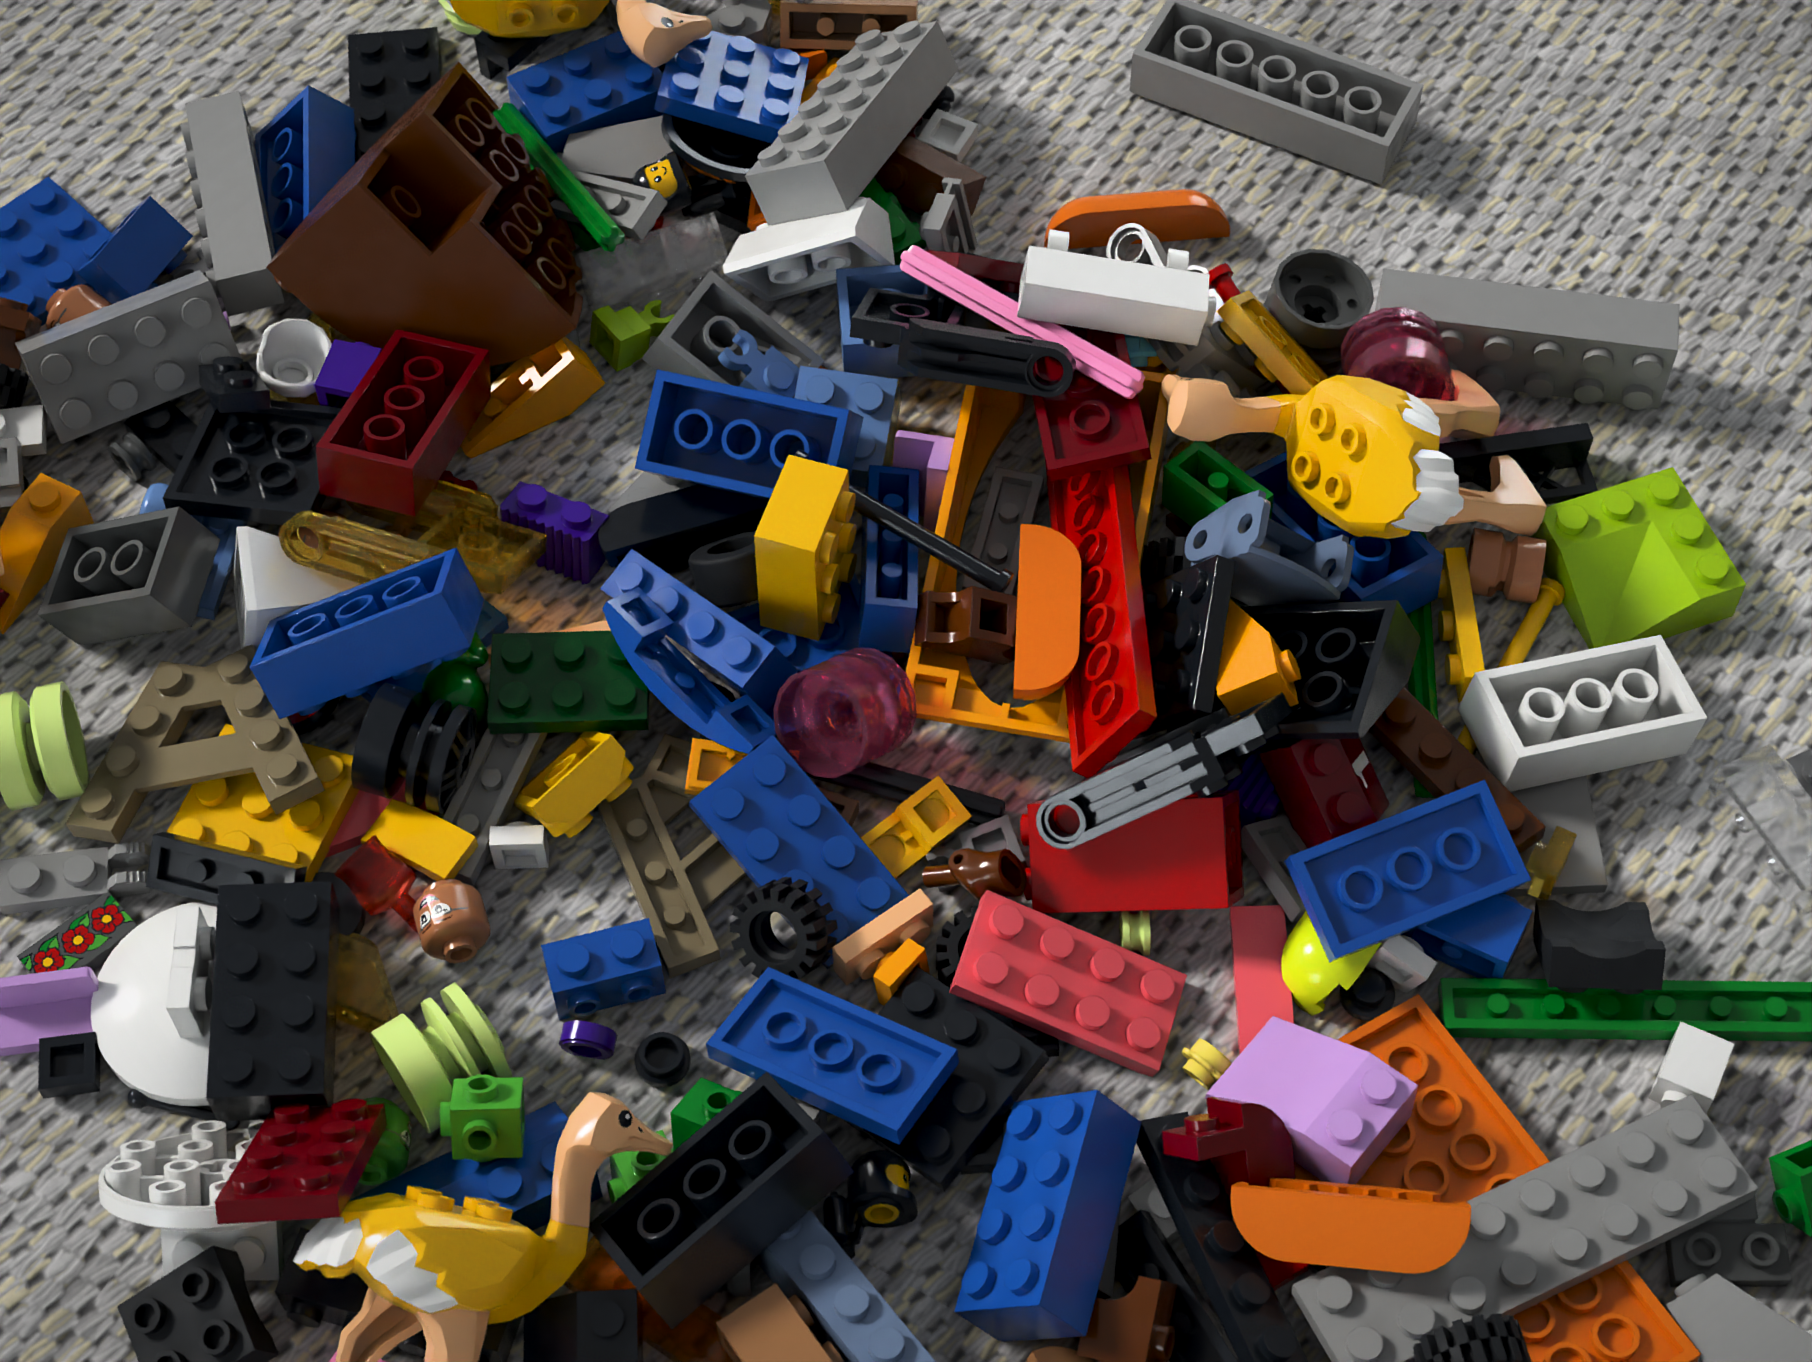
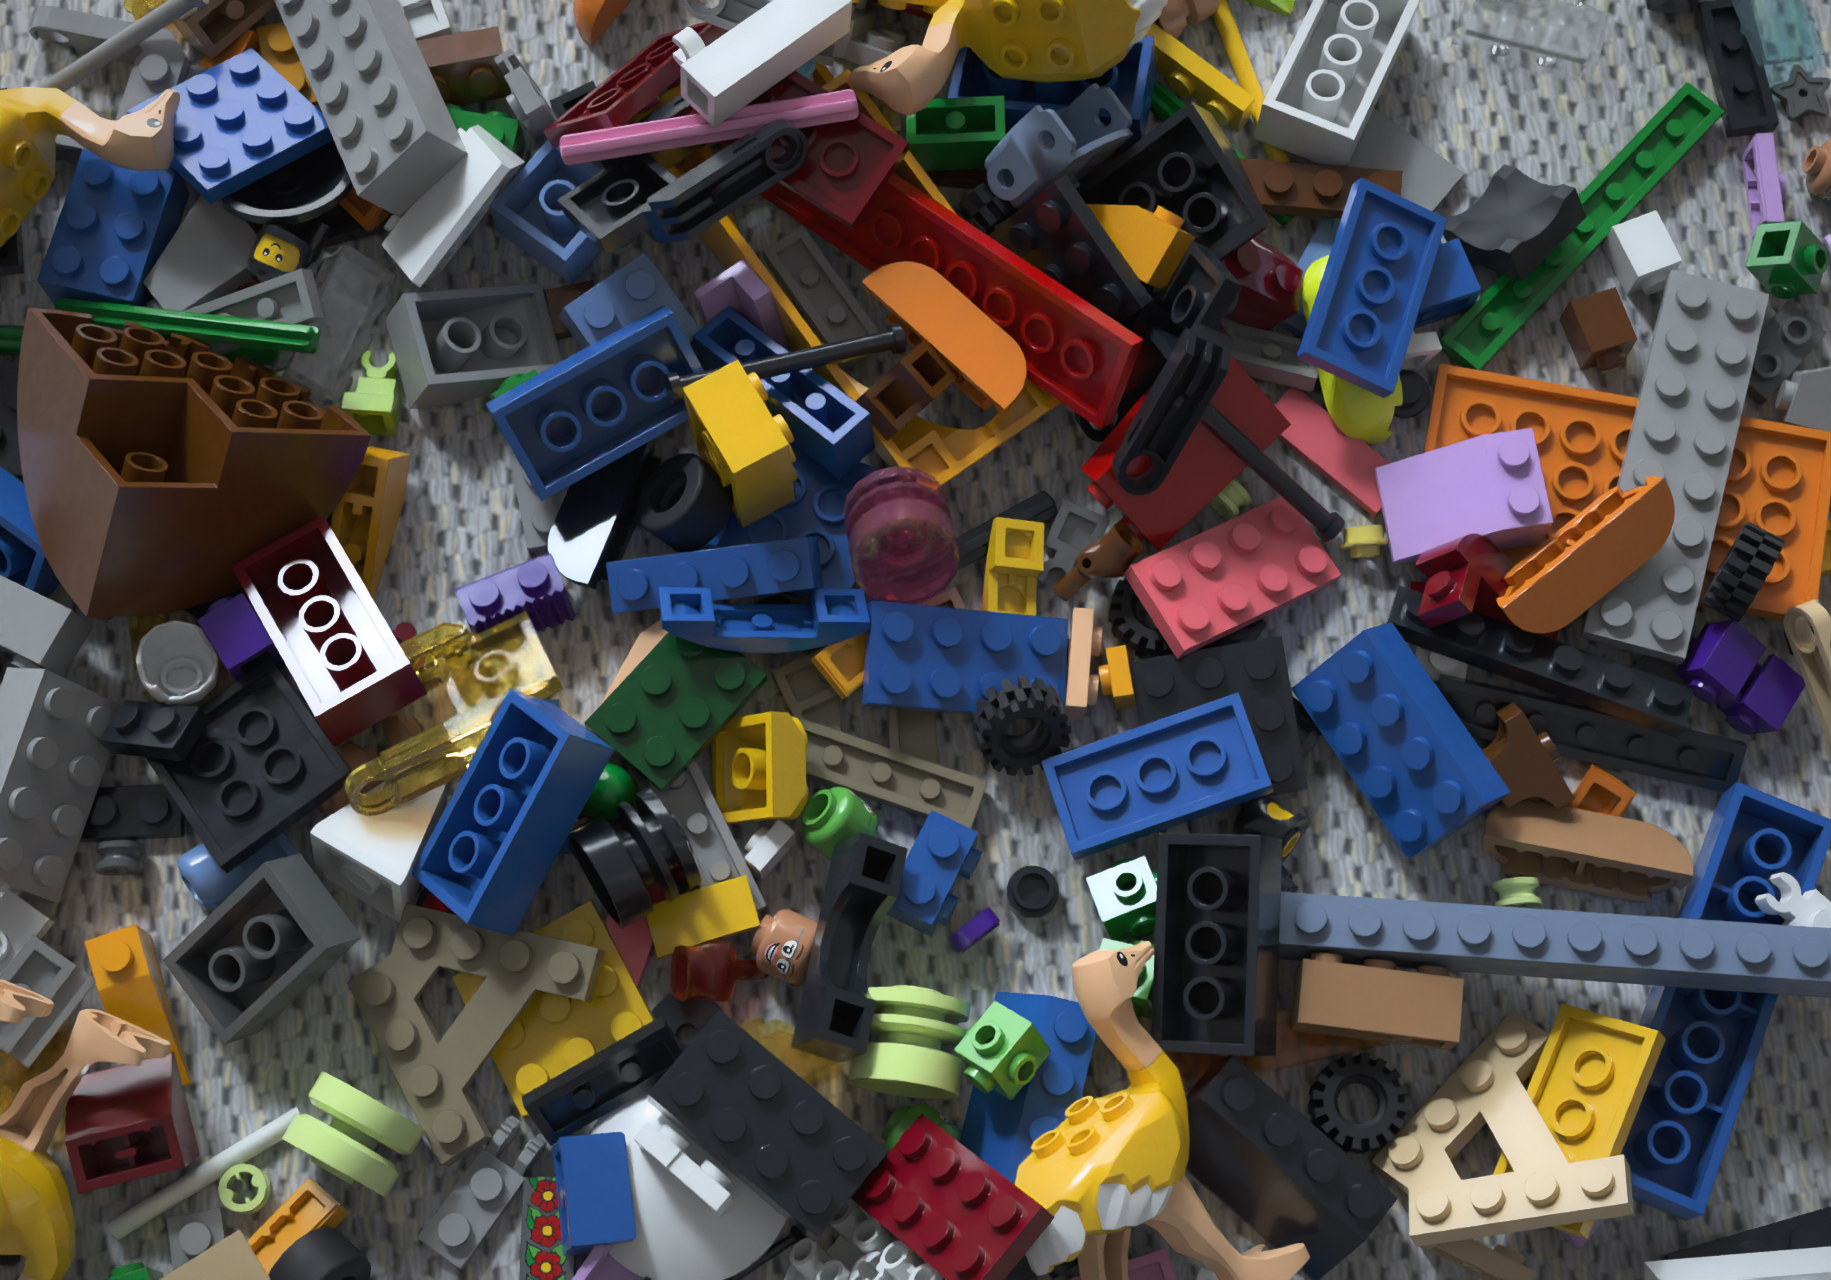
camera: 50 degrees left, 15 degrees up
(124, 934) = (593, 1191): none -> blue panel
(473, 942) = (835, 999): none -> black arch
(582, 874) = (835, 817): none -> bright green head
(764, 372) = (525, 332): medium blue plate -> none
(1174, 924) = (1327, 524): none -> black bar
(1549, 861) = (1428, 188): clear yellow plate -> none
(1584, 1093) = (1598, 330): none -> reddish brown brick

